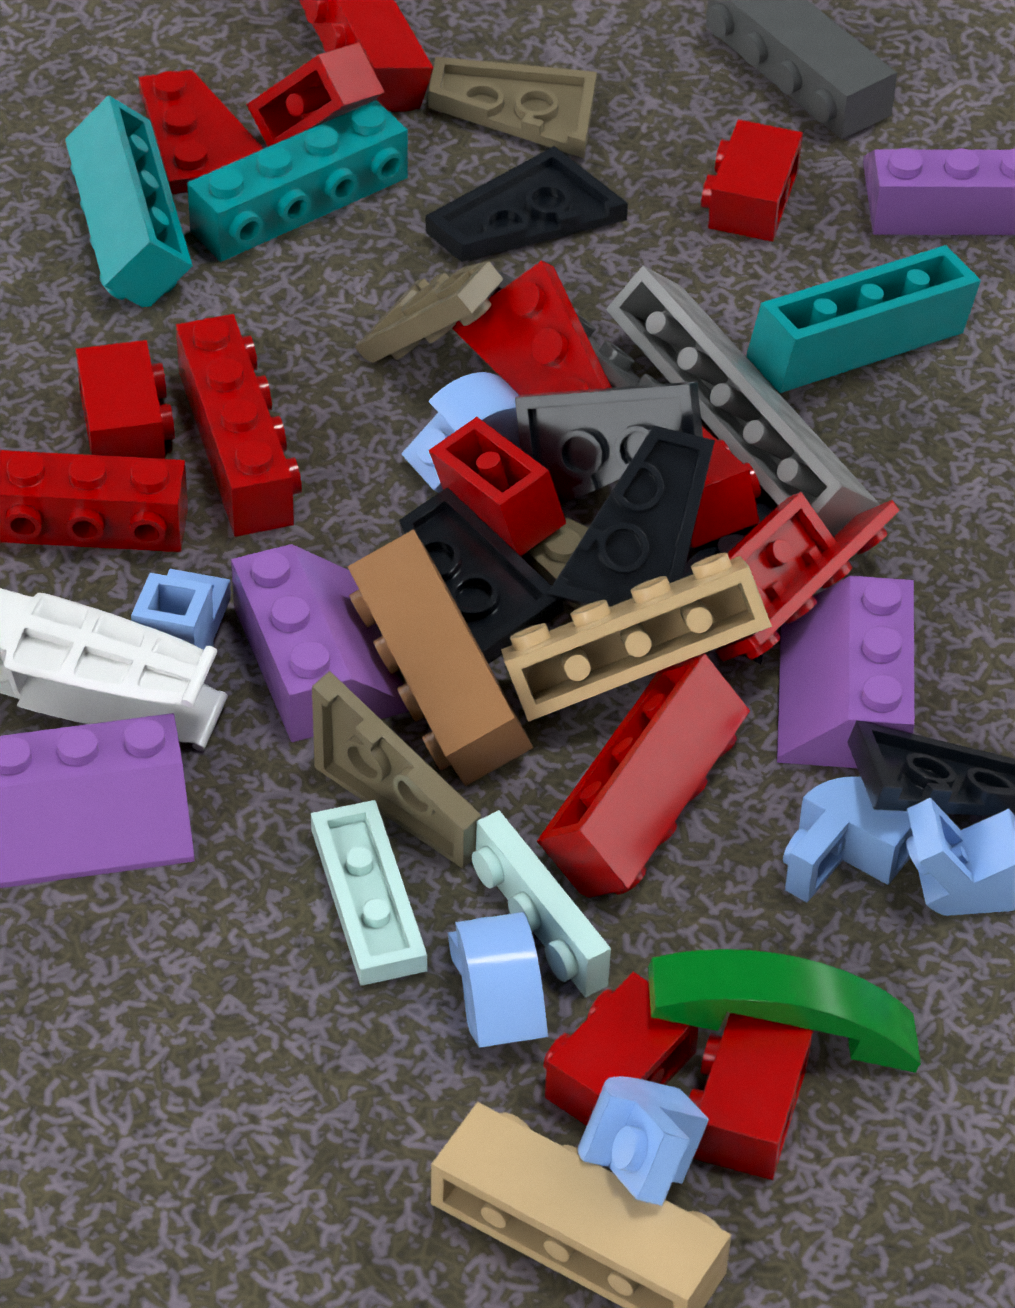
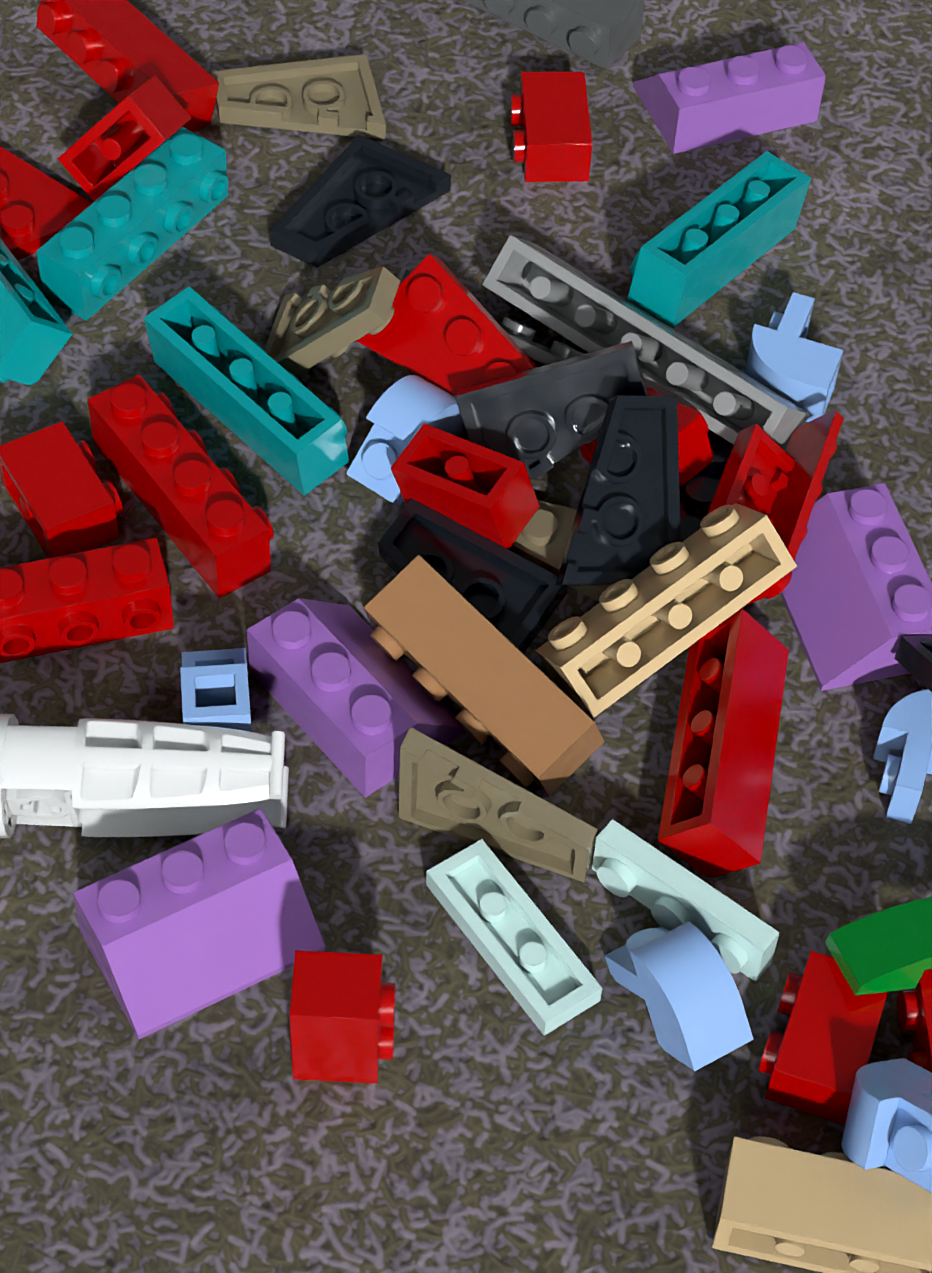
camera: 20 degrees left, 5 degrees up
(165, 906) = (340, 1017): none -> red brick
(335, 354) = (247, 390): none -> teal brick
(889, 451) = (790, 363): none -> light blue brick

